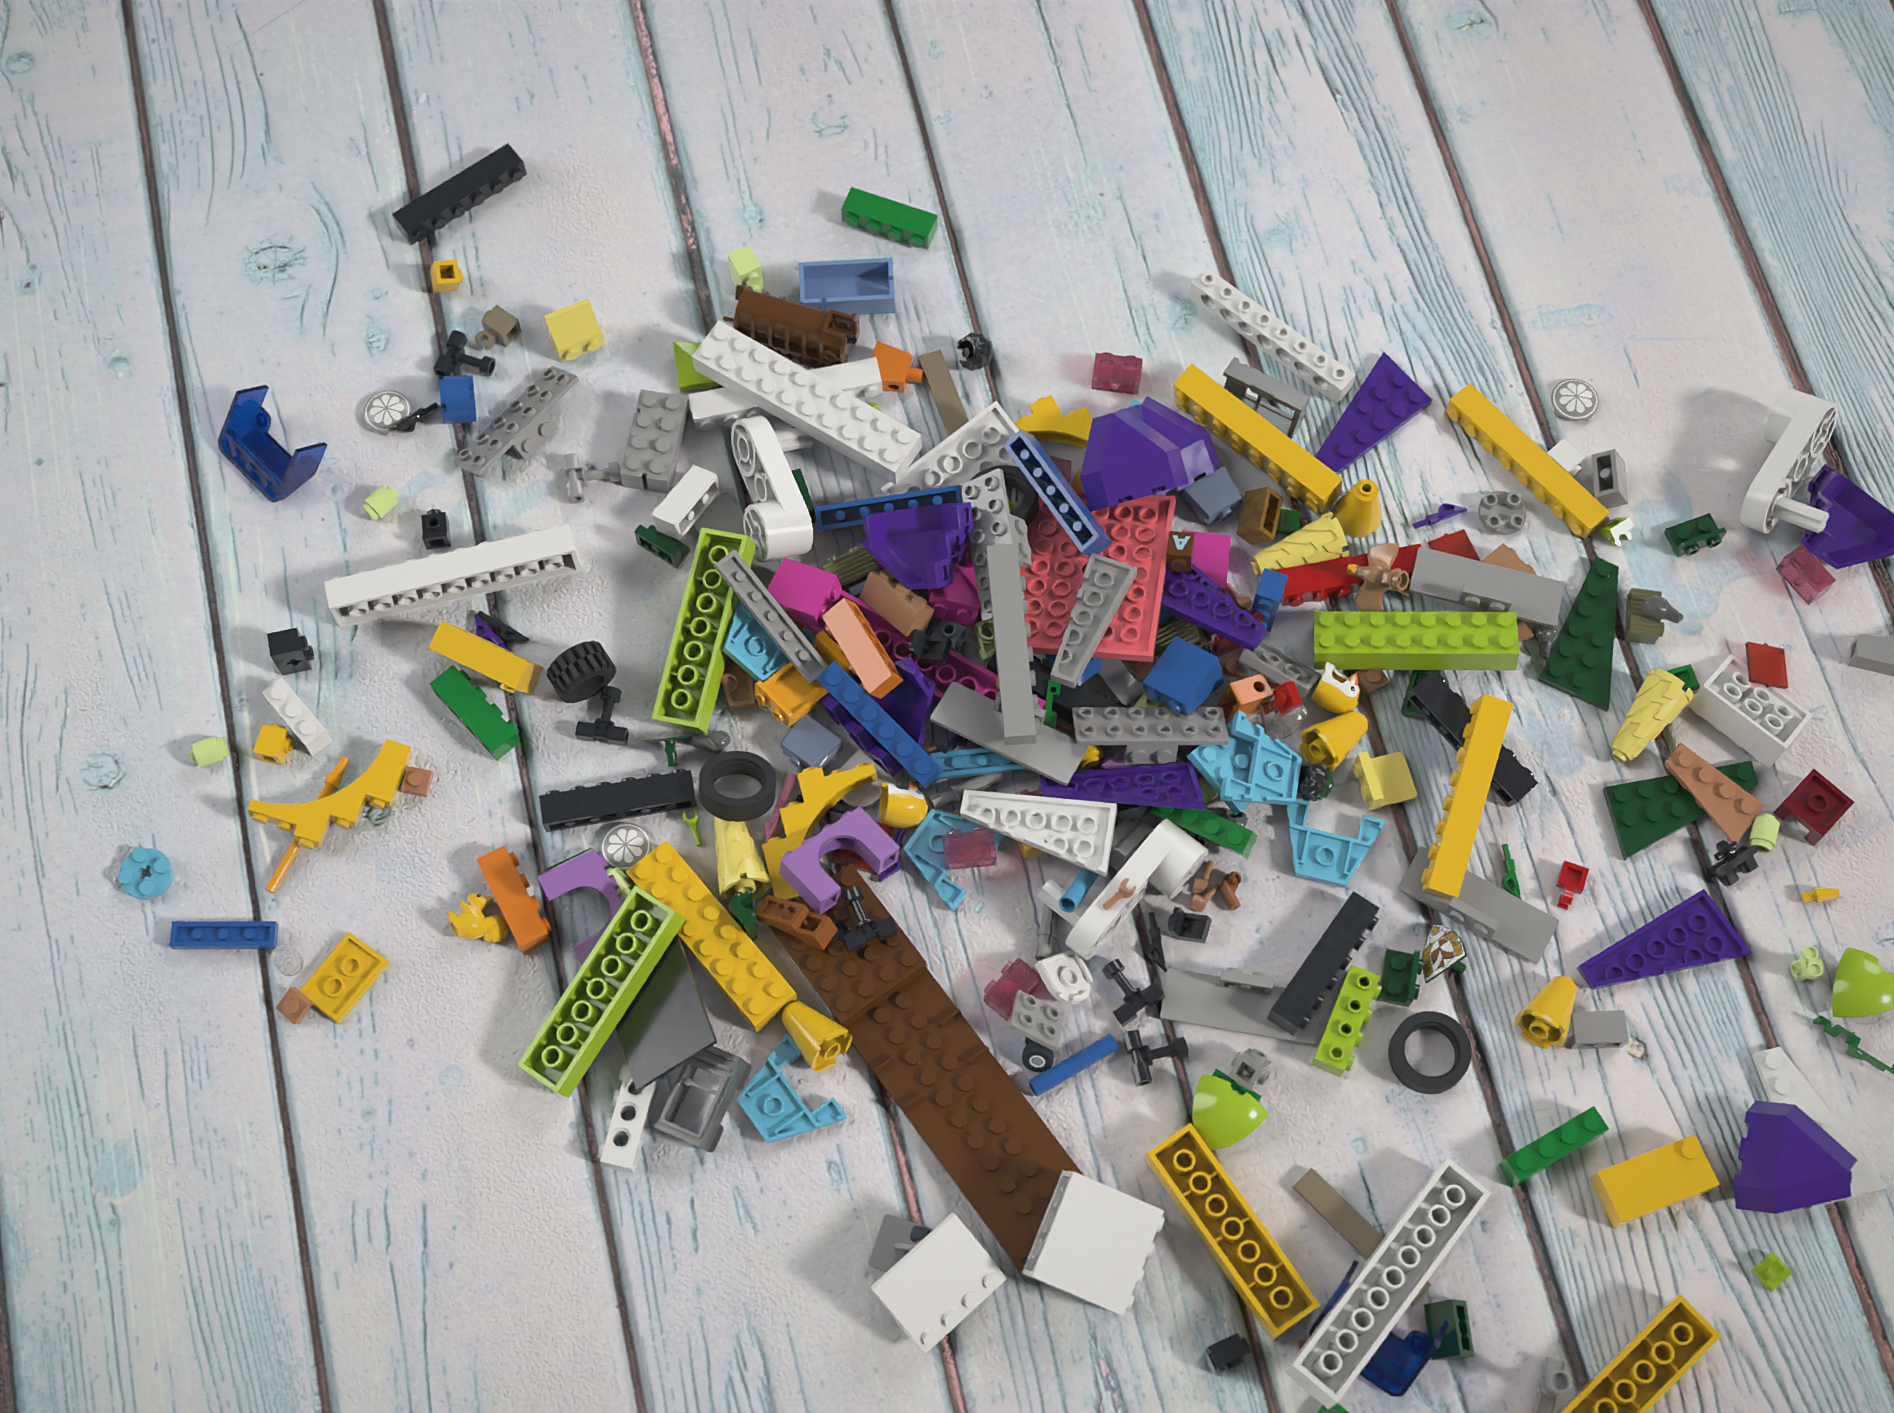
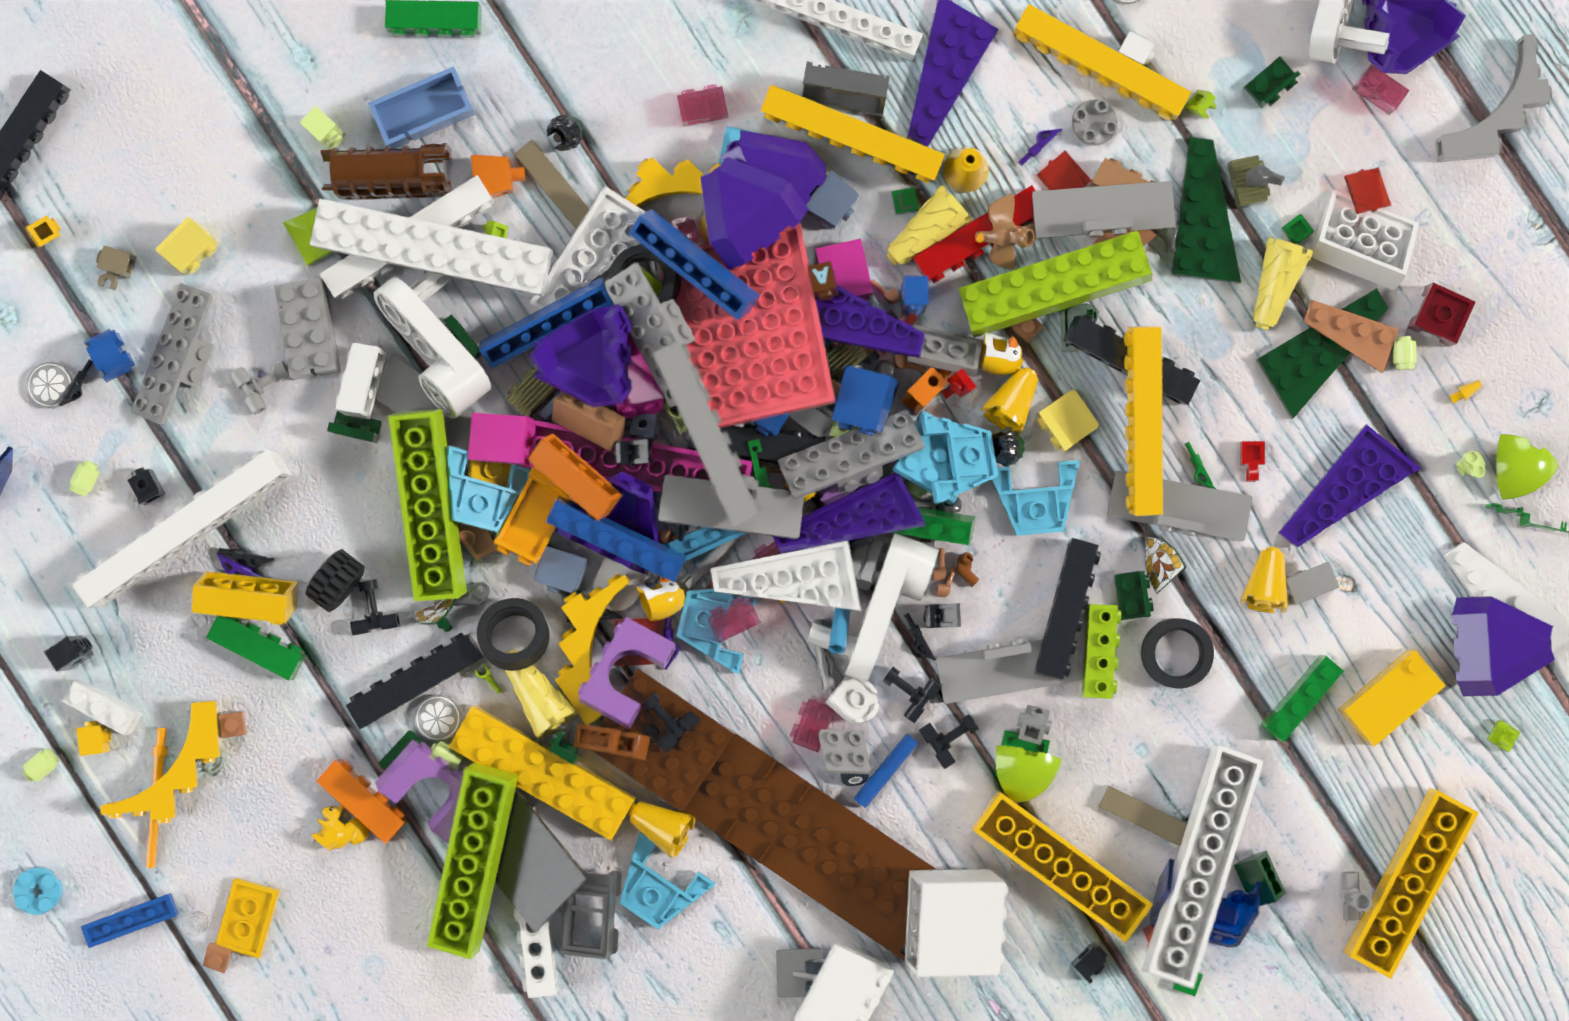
camera: 20 degrees left, 20 degrees up
(456, 356) = (88, 307): black bar -> none
(771, 616) = (483, 476): light grey plate -> none
(771, 828) = (556, 655): bright pink piece -> none
(1097, 602) = (767, 360): light grey wing -> none
(1122, 892) = (878, 626): nougat hand -> none
(1259, 515) = (879, 207): pearl gold brick -> none
(1609, 479) = (1182, 56): light grey brick -> none
(1740, 857) = (1382, 388): black hips -> none

